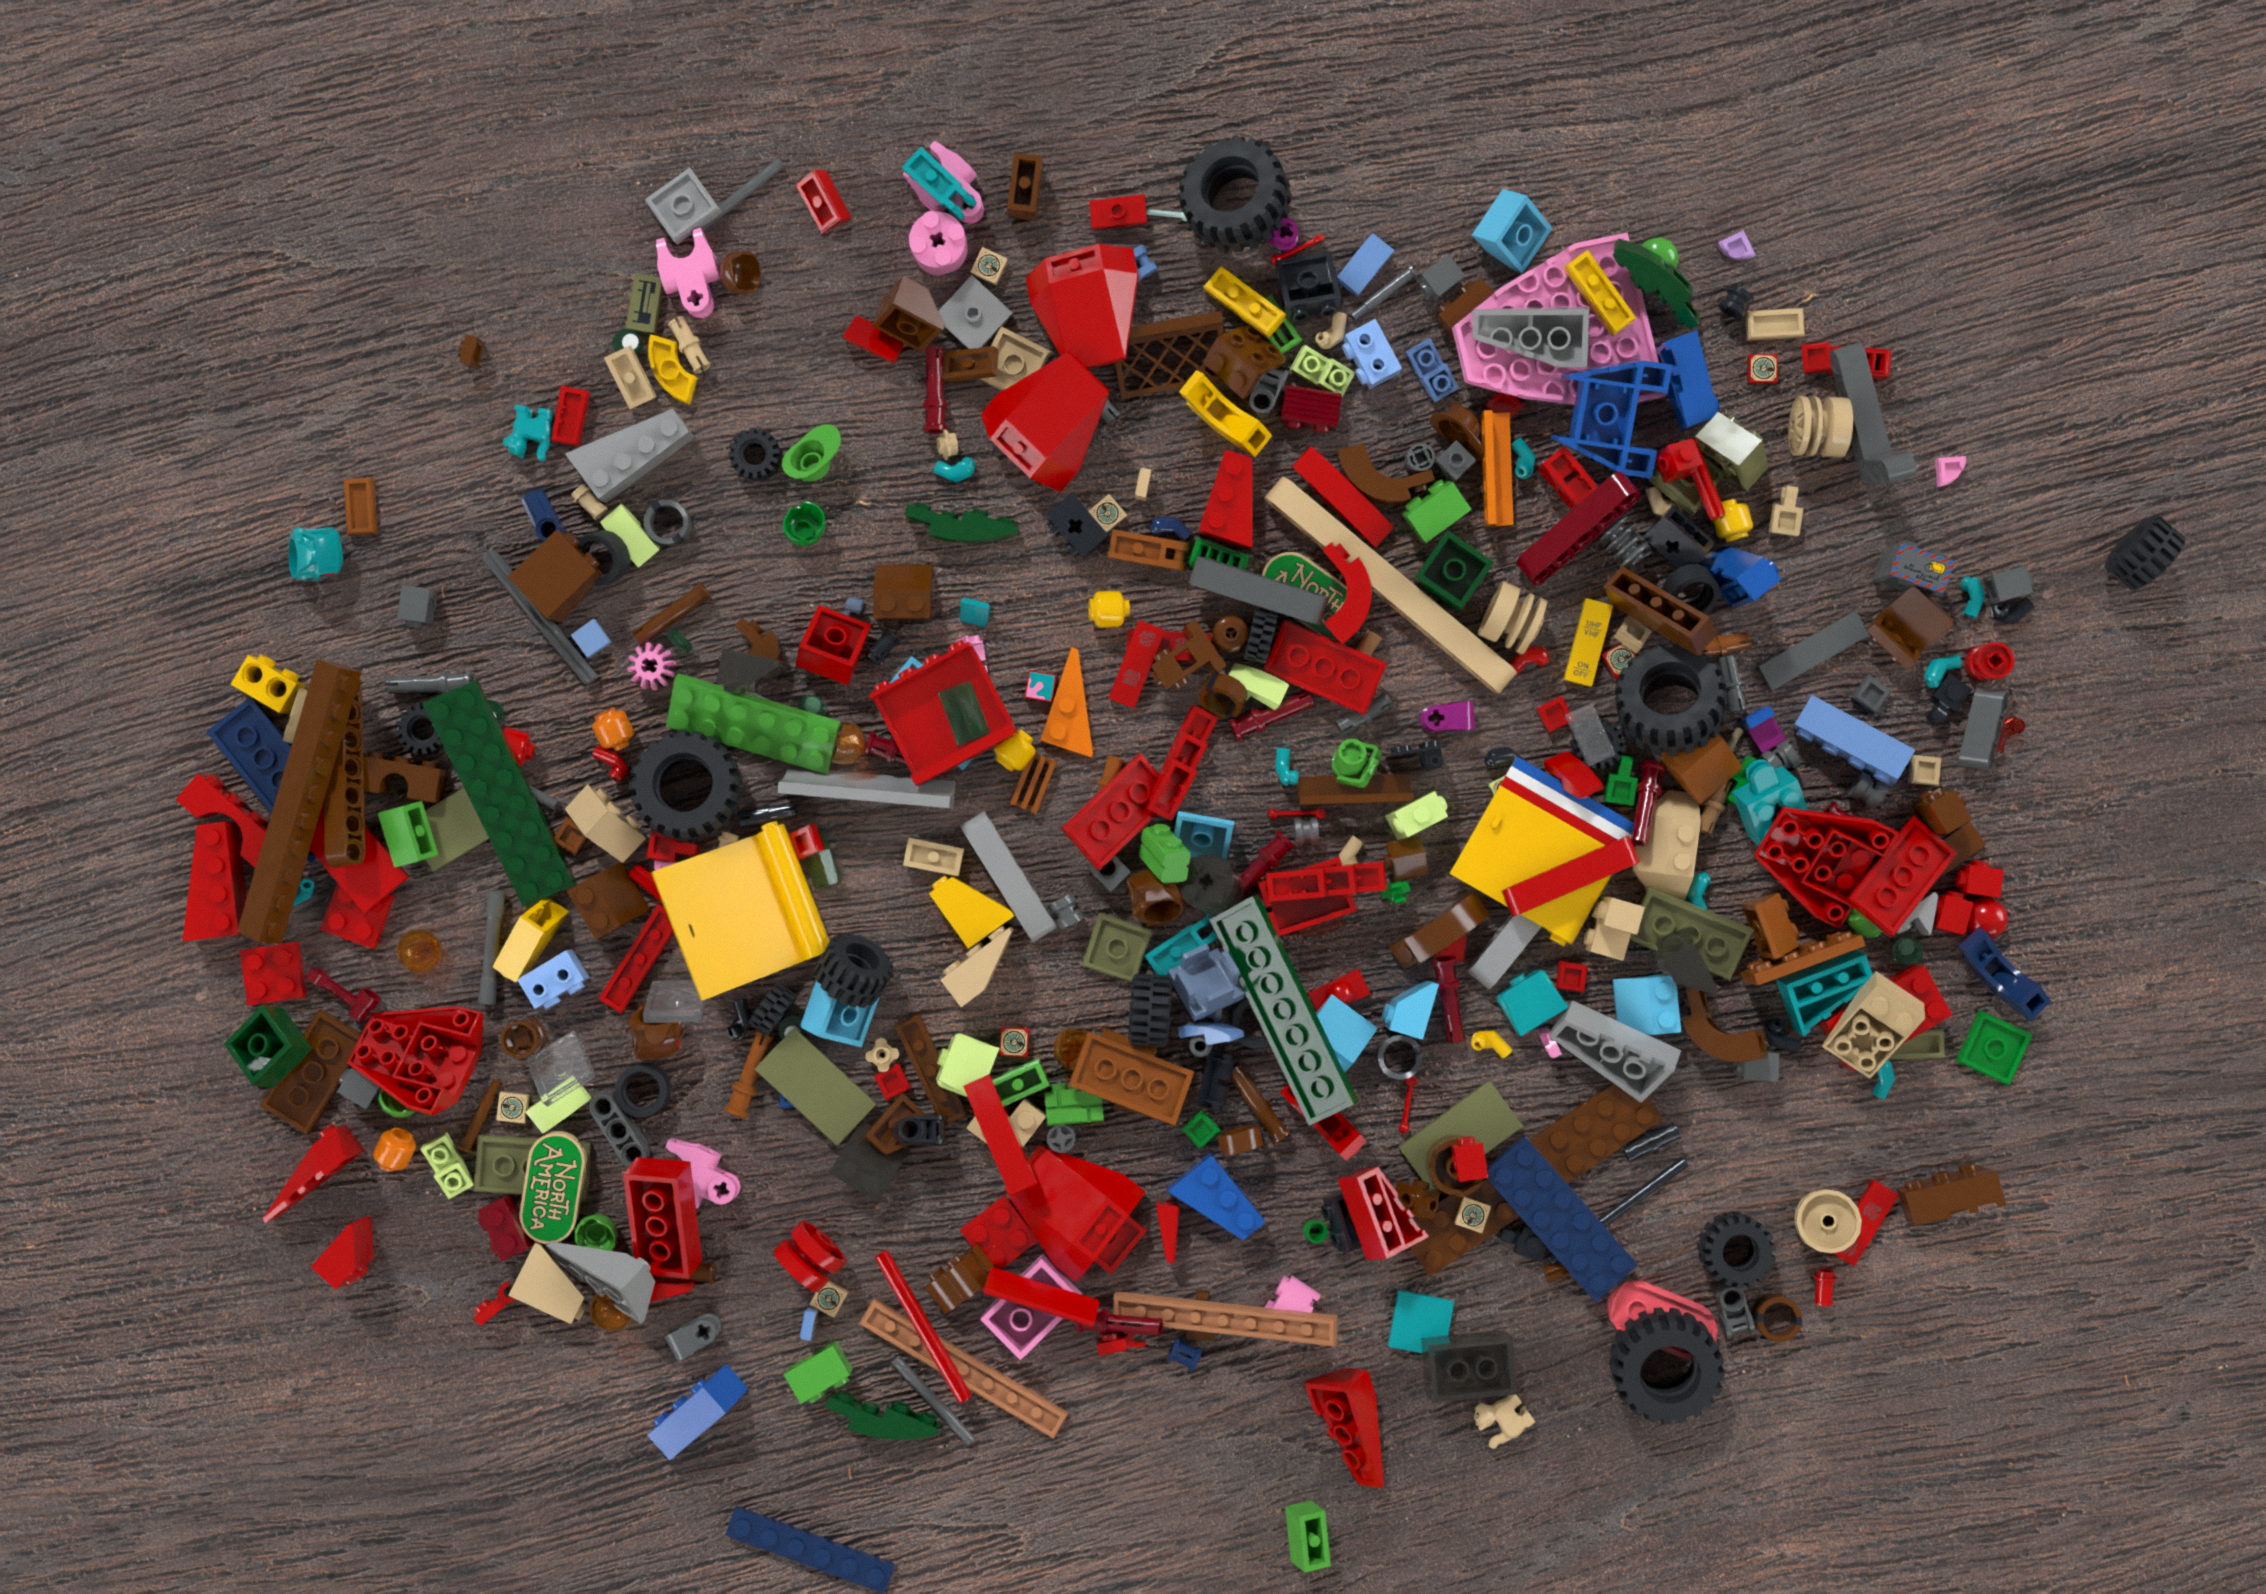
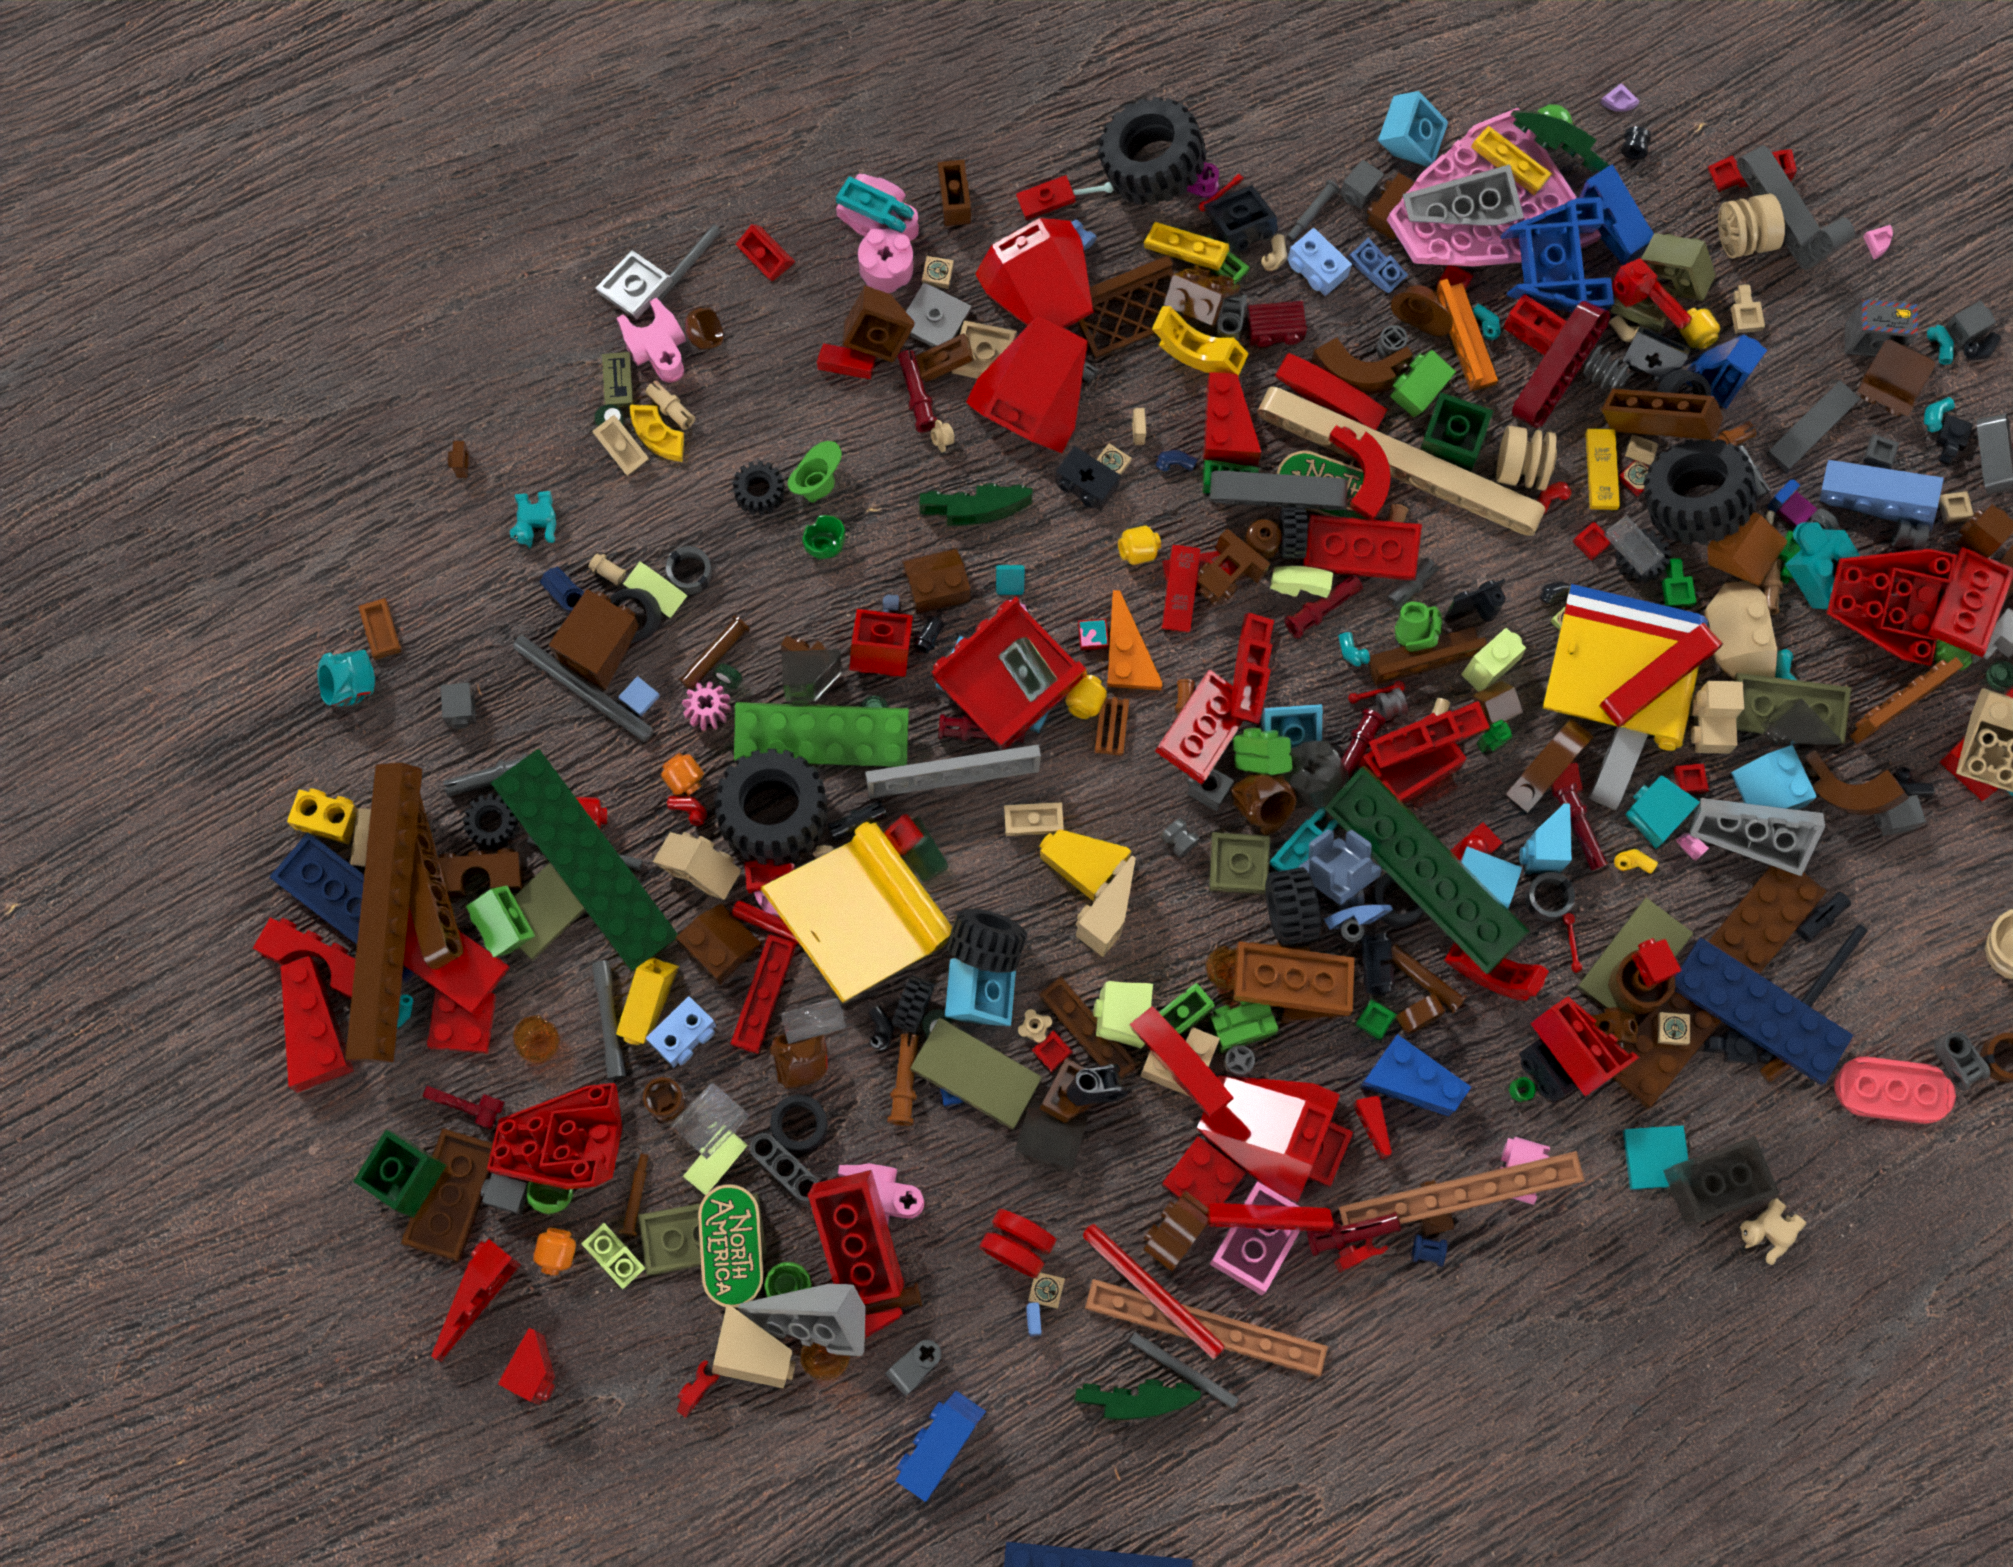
camera: 20 degrees left, 15 degrees down
(273, 973) = (386, 1103): red plate -> none
(504, 1228) = (687, 1296): dark red brick -> none
(513, 1107) = (667, 1177): tile -> none
(570, 416) = (569, 495): red plate -> none
(570, 836) = (665, 890): dark orange tile -> none
(629, 454) = (635, 515): light grey wedge -> none
(819, 1372) = (1057, 1369): bright green brick -> none
(849, 745) = (922, 730): clear orange hair -> none
(957, 472) = (957, 459): teal arm -> none
(1008, 876) = (1113, 819): light grey beam -> none
(1014, 1041) = (1164, 980): tile -> none
(1147, 550) = (1161, 485): dark orange plate -> none
(1227, 685) = (1273, 580): reddish brown piece -> none
(1307, 1536) = (1615, 1404): bright green brick -> none
(1322, 371) = (1270, 289): yellowish green slope -> none
(1350, 1410) = (1616, 1267): red wedge -> none
(1364, 264) = (1287, 189): medium blue slope -> none
(1453, 717) = (1497, 565): magenta piece -> none
(1454, 462) = (1425, 335): dark grey brick -> none
(1575, 775) = (1632, 585): red slope -> none
(1648, 791) = (1706, 585): dark red pin -> none
(1678, 1398) = (1955, 1120): black tyre -> none
(1752, 1266) = (1959, 981): black tyre -> none
(1762, 368) = (1679, 195): tile -> none
(1771, 926) = (1868, 680): dark orange slope -> none
(1774, 324) = (1677, 155): tan tile -> none
(1821, 988) = (1933, 726): teal wedge -> none
(1989, 661) = (1979, 393): red wheel -> none

